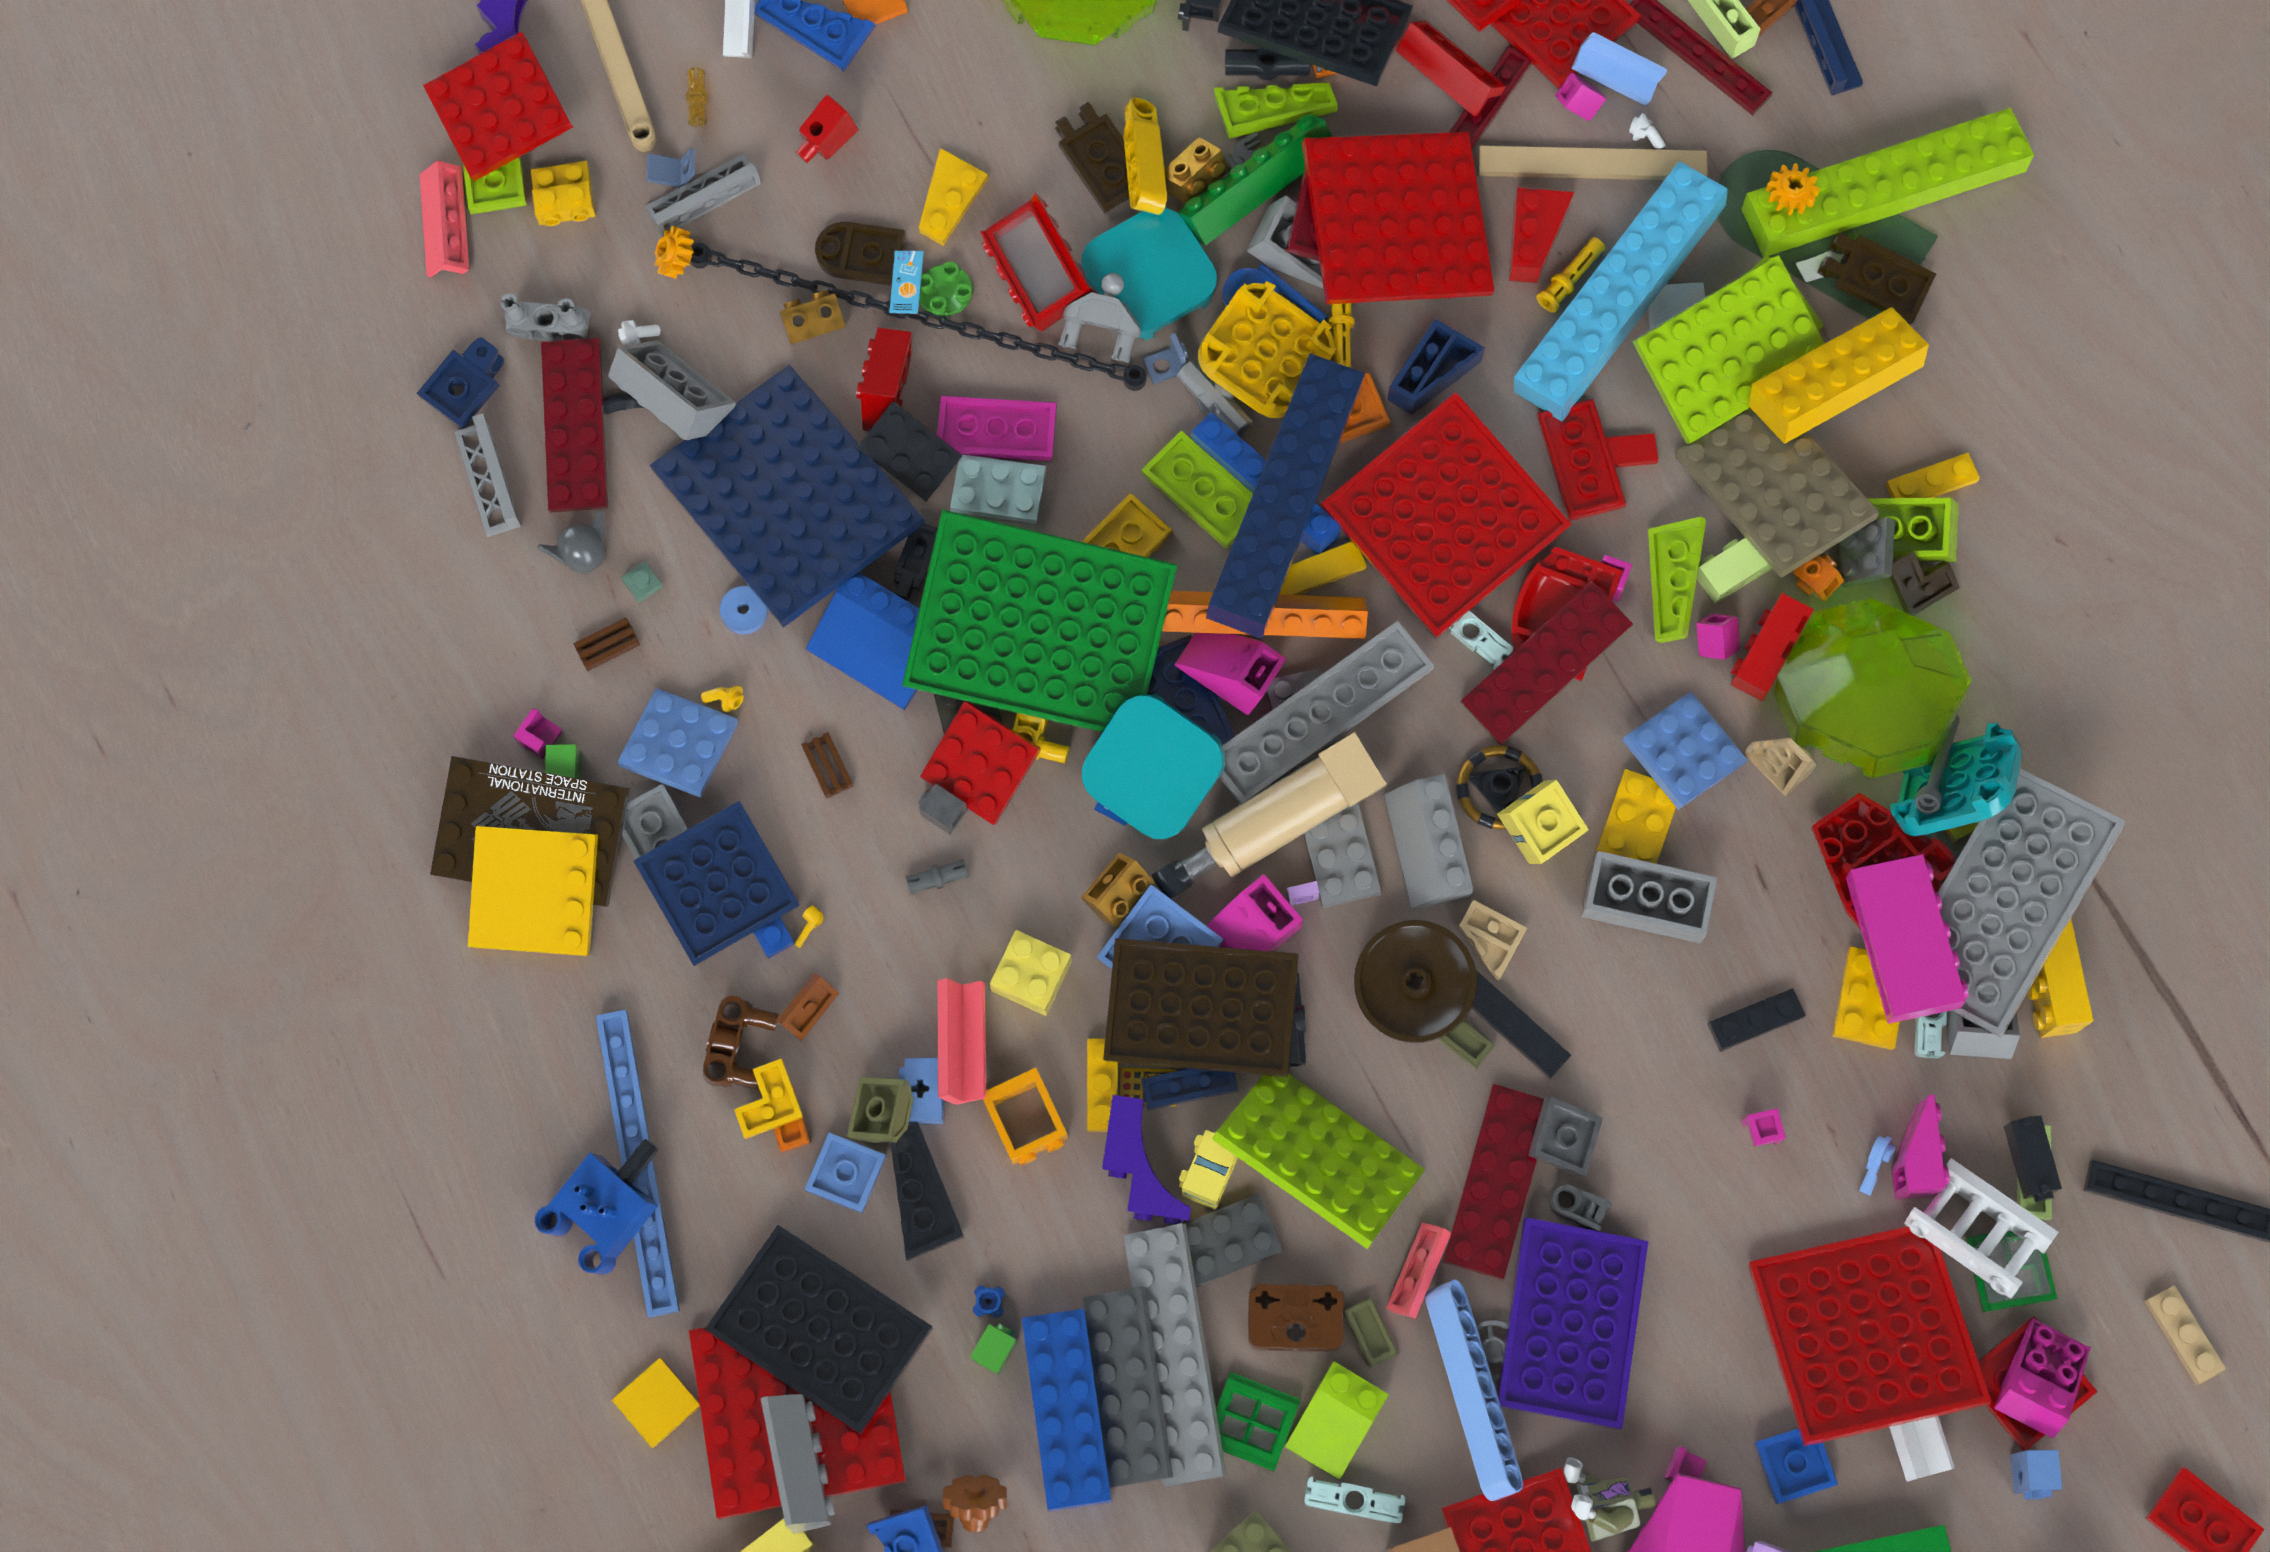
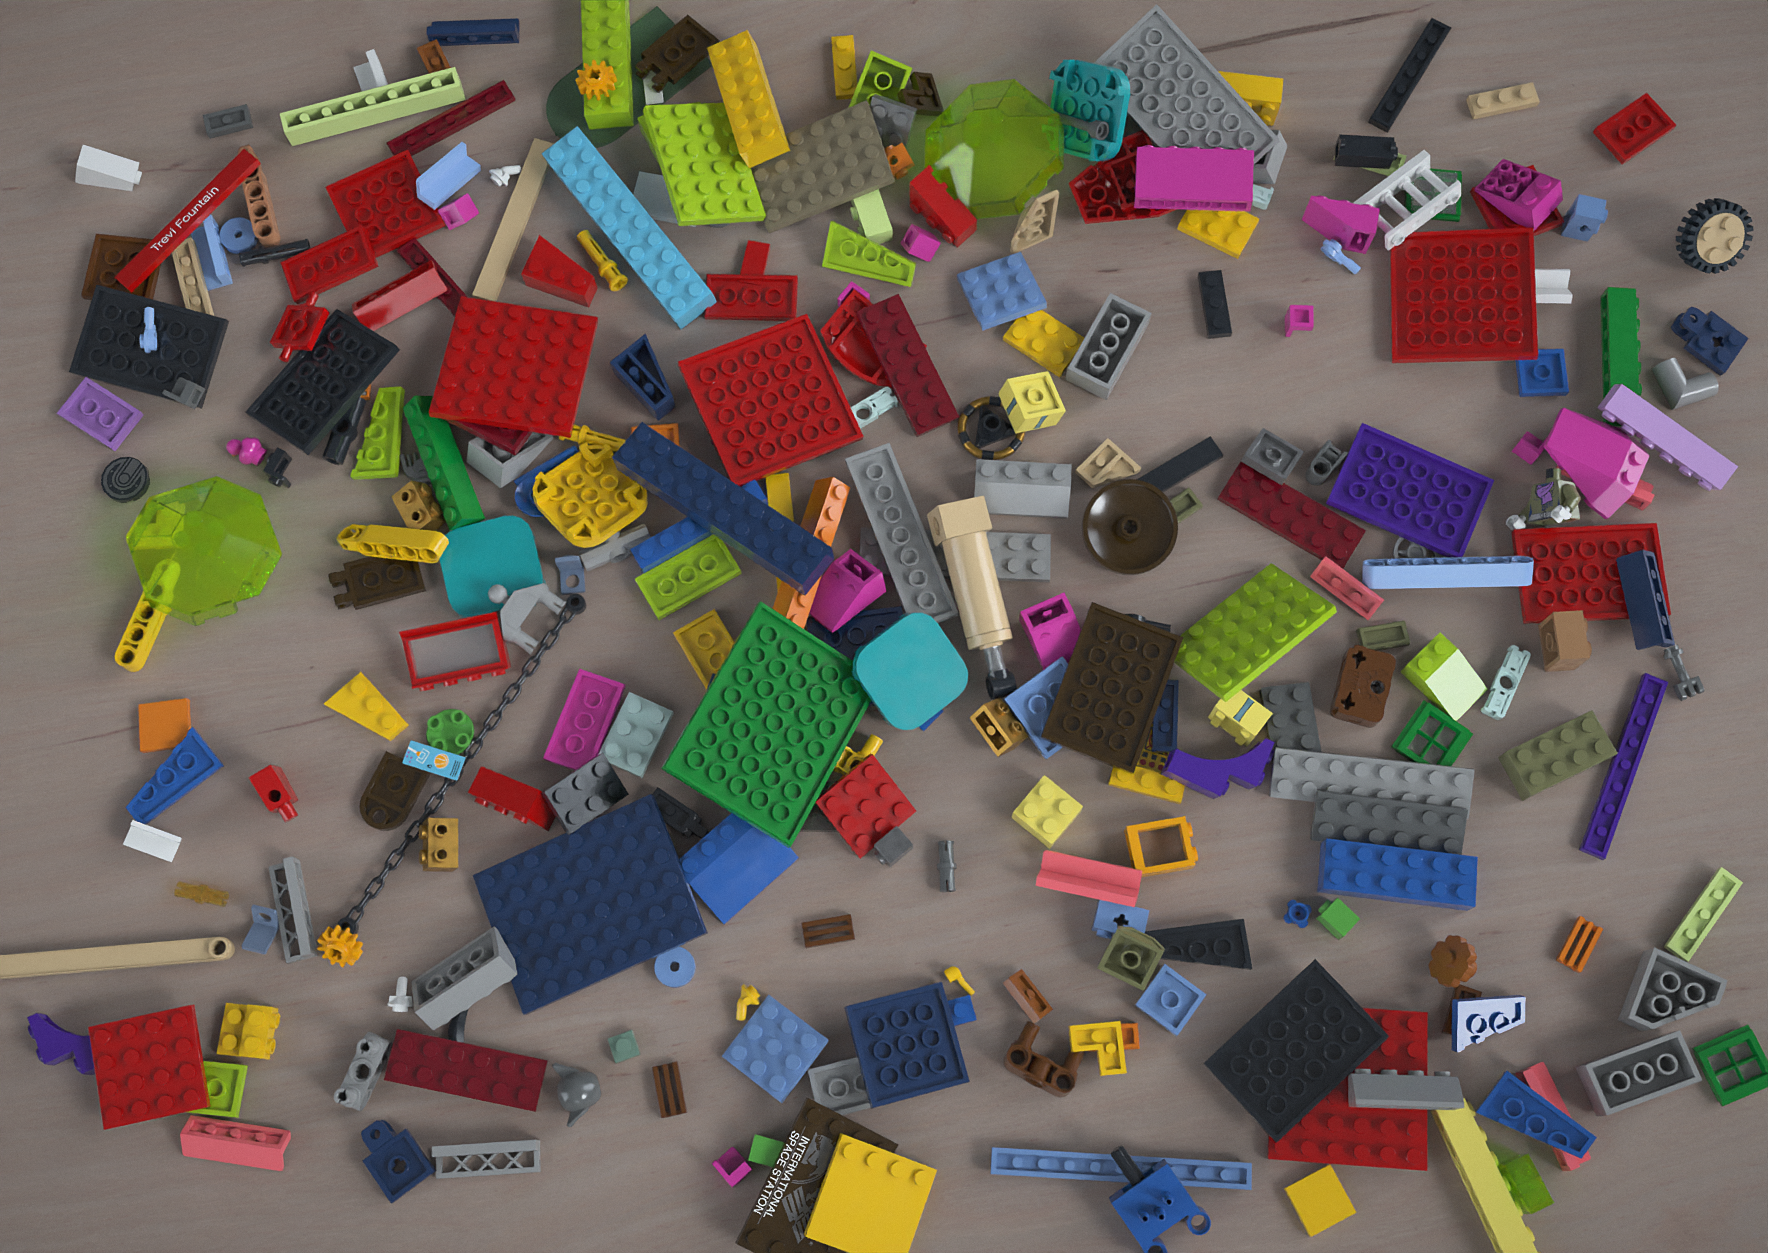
camera: 75 degrees left, 0 degrees up
(1302, 893) = (1037, 590): lavender tile -> none

